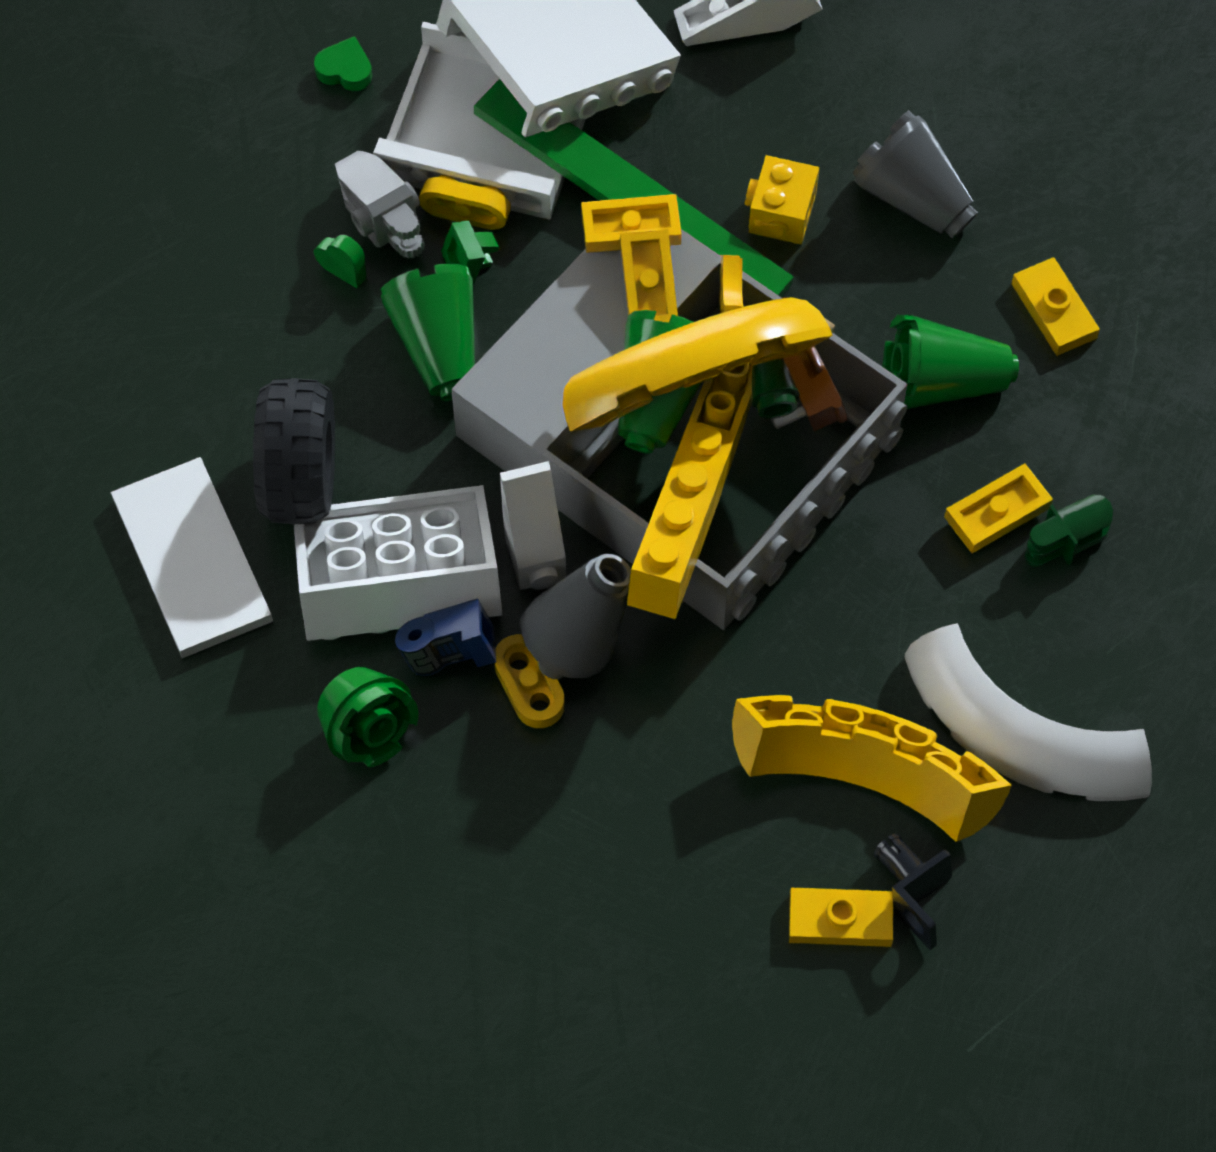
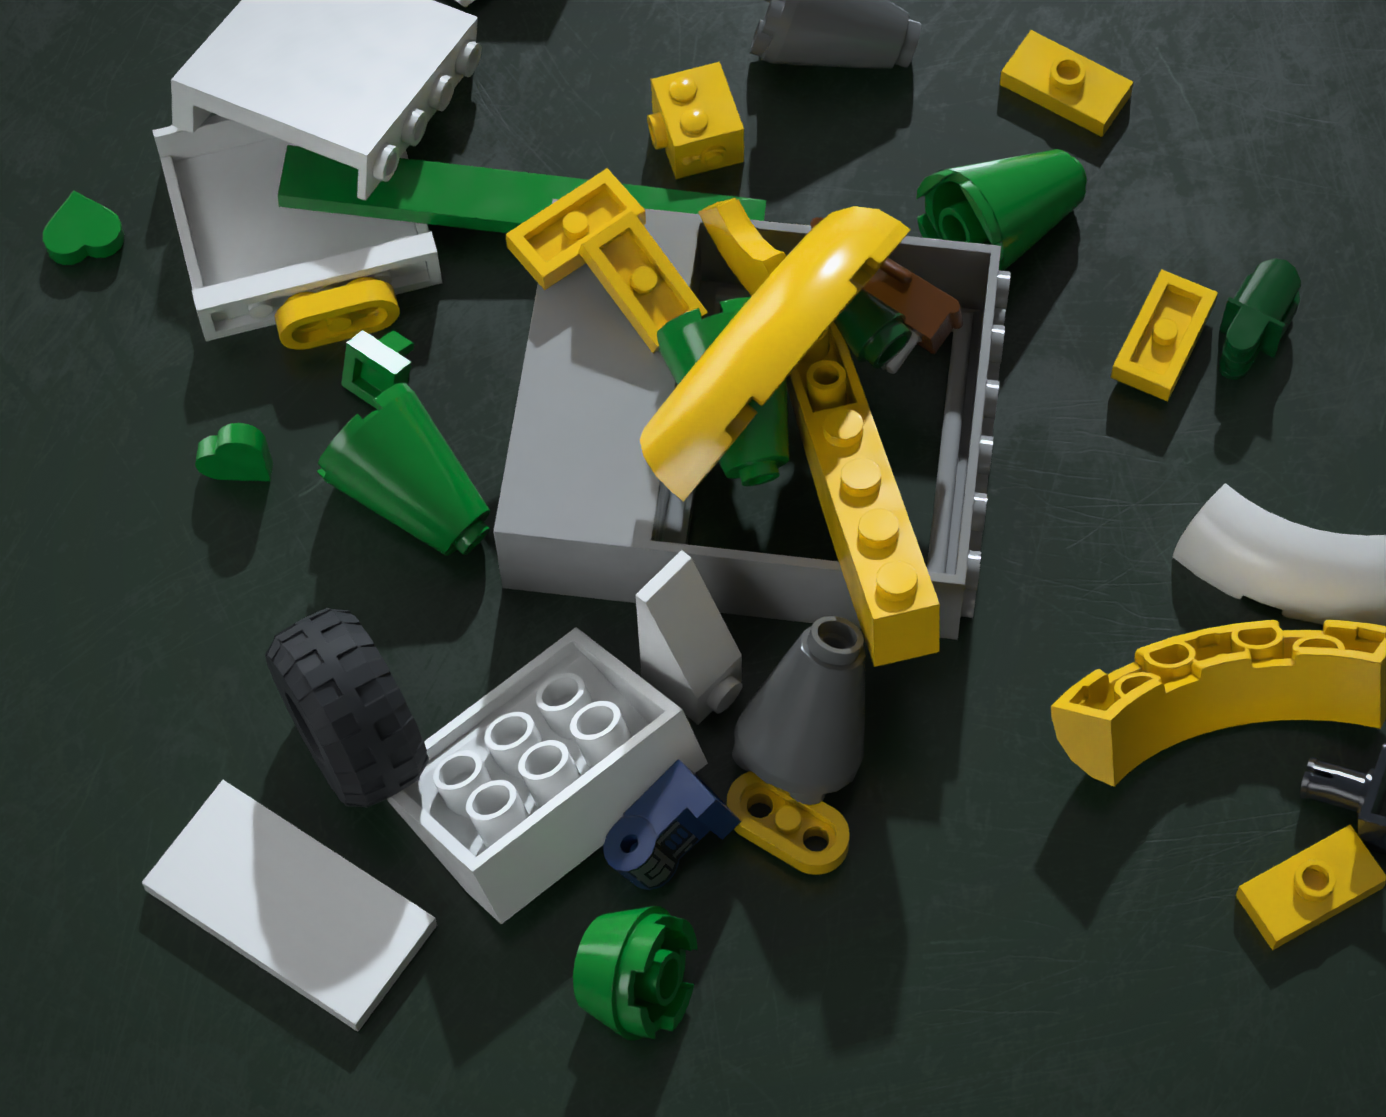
camera: 30 degrees left, 0 degrees up
(380, 203) = (239, 366): light grey hinge -> none

